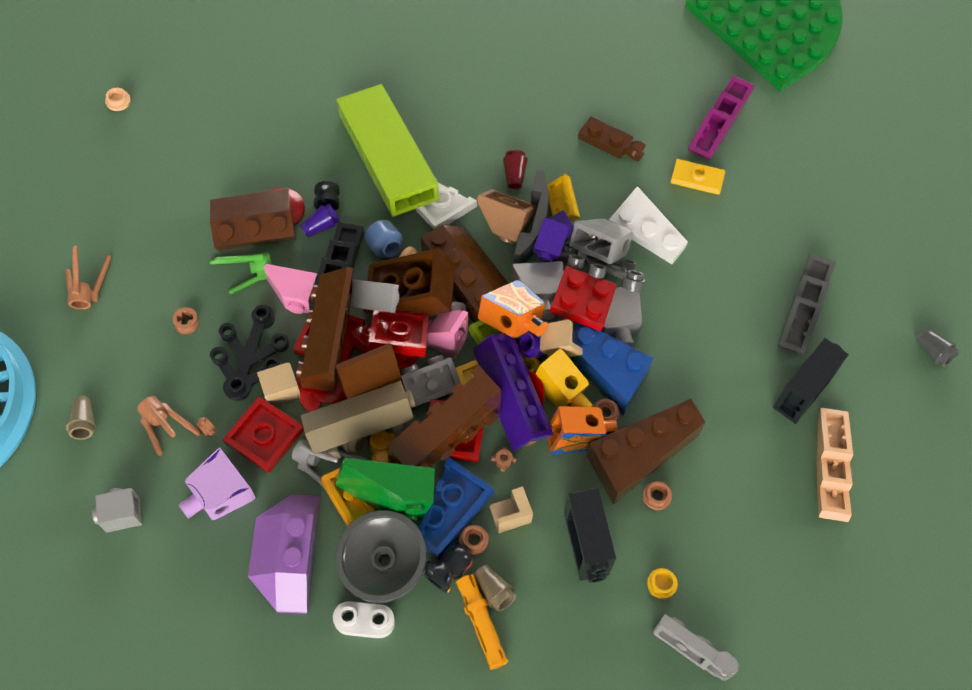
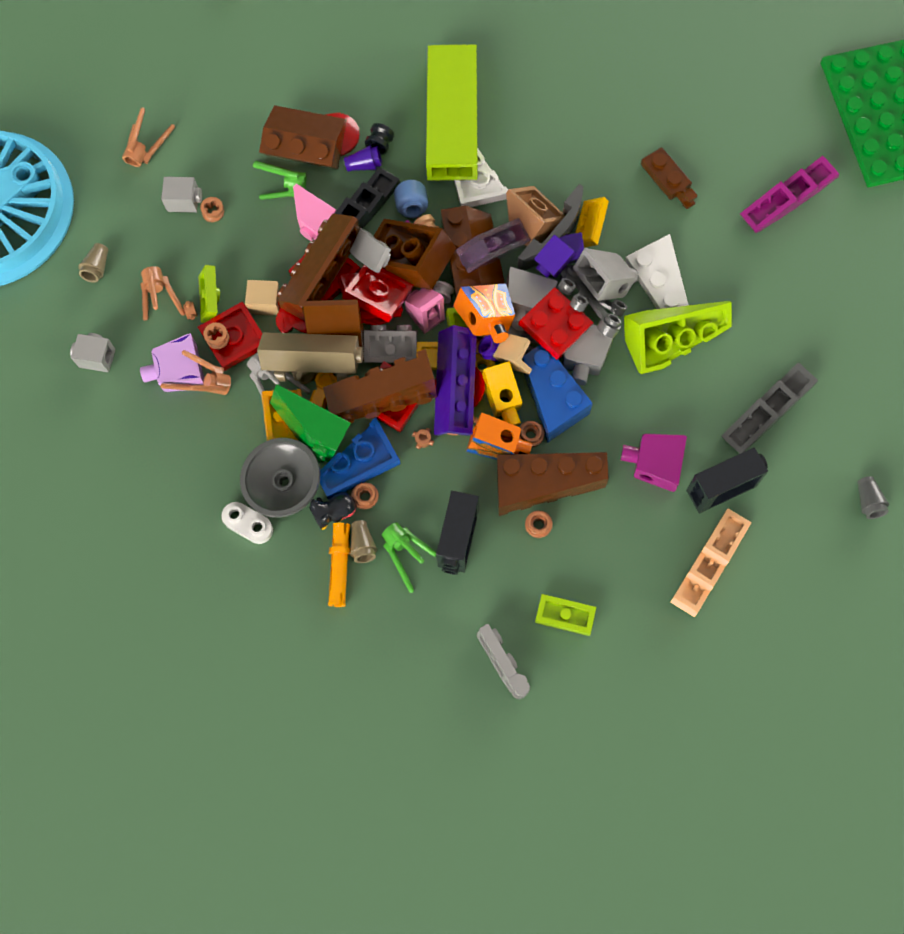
camera: 30 degrees right, 10 degrees up
(148, 316) = (181, 194): none -> light grey brick
(219, 402) = (208, 293): none -> lime plate
(240, 437) = (212, 329): none -> nougat bush
(248, 356) = (250, 261): black plant -> none
(264, 489) = (213, 382): none -> nougat plant
(285, 552) = (209, 441): medium lavender wedge -> none
(488, 250) = (493, 245): none -> brick
(512, 511) = (407, 486): tan panel -> none
(515, 167) = (563, 173): dark red cone -> none
(529, 566) = (399, 538): none -> bright green plant
(662, 583) = (504, 598): yellow plate -> none
(681, 272) = (666, 333): none -> lime wedge
(698, 176) = (734, 245): yellow plate -> none
(729, 573) = (565, 614): none -> lime plate
(736, 388) = (657, 459): none -> magenta torso

